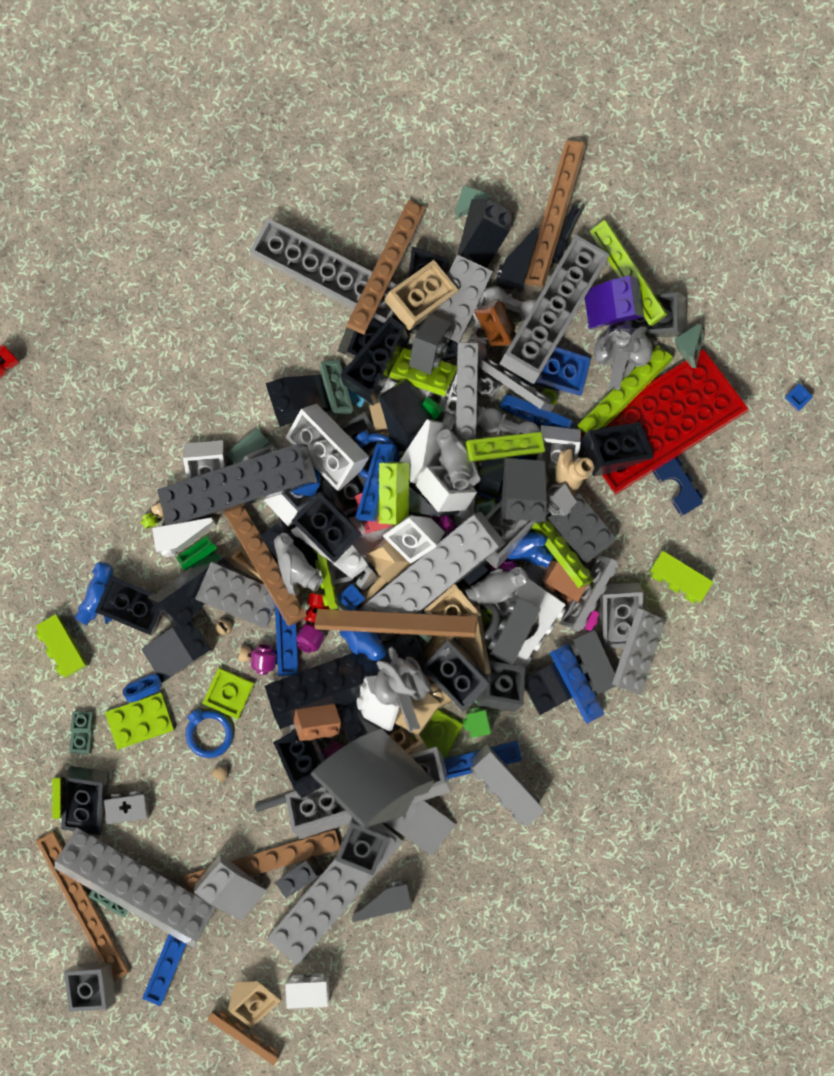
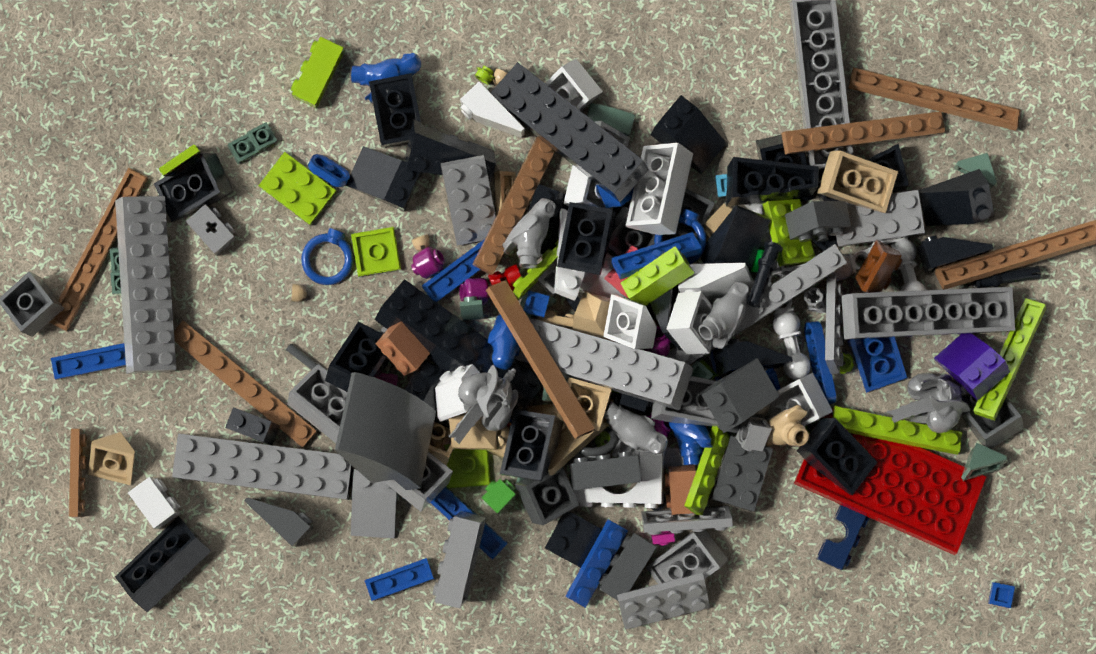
camera: 50 degrees right, 0 degrees up
(196, 552) = (484, 136): green tile -> none
(227, 624) = (438, 207): tan hinge -> none
(229, 888) = (200, 370): light grey slope -> none
(321, 649) = (471, 309): none -> sand green slope
(336, 391) = (716, 165): sand green plate -> none
(358, 1016) = (162, 564): none -> black slope
(362, 847) = (316, 464): dark grey brick -> none
(367, 579) = (562, 307): light grey tile -> none
(395, 198) = (934, 99): none -> medium nougat tile
(438, 404) = (766, 266): none -> black pin
(489, 841) = (399, 579): none -> blue plate
(505, 446) = (768, 351): lime plate -> none
(680, 577) = (757, 595): lime brick -> none

